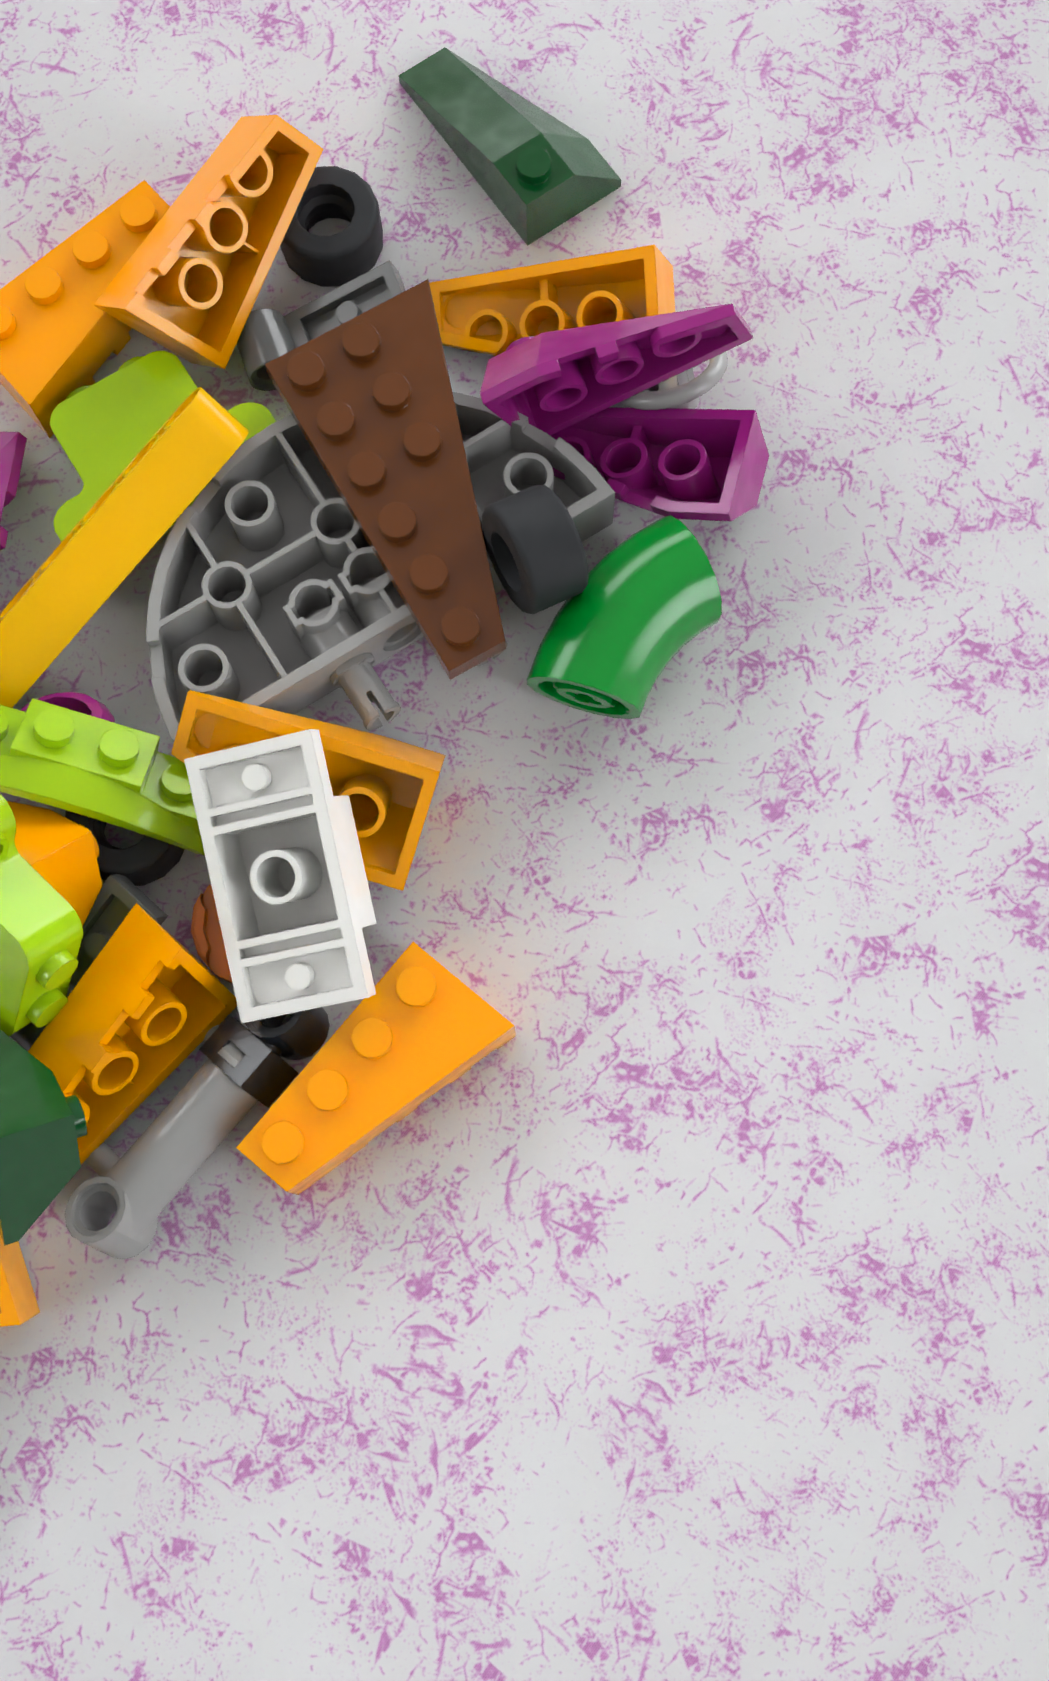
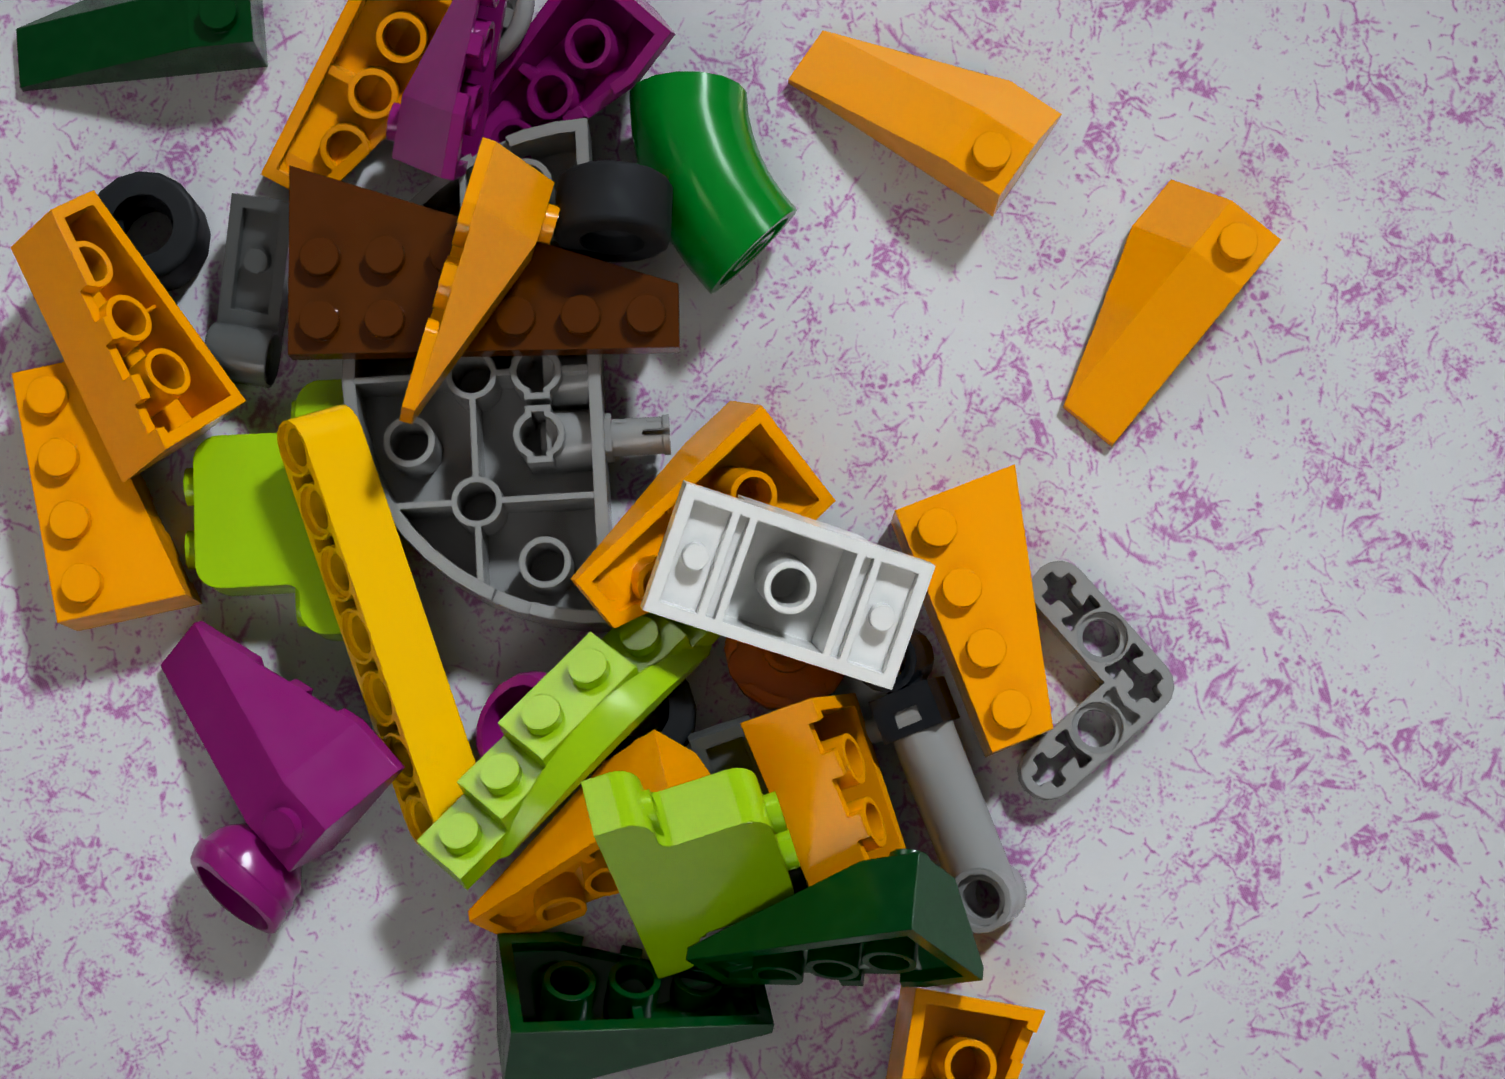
camera: 65 degrees left, 5 degrees up
(359, 1235) = (1111, 695): none -> light grey beam
(445, 457) = (492, 245): none -> light orange wedge
(771, 1088) = (1169, 288): none -> light orange wedge
(810, 803) = (942, 118): none -> light orange wedge

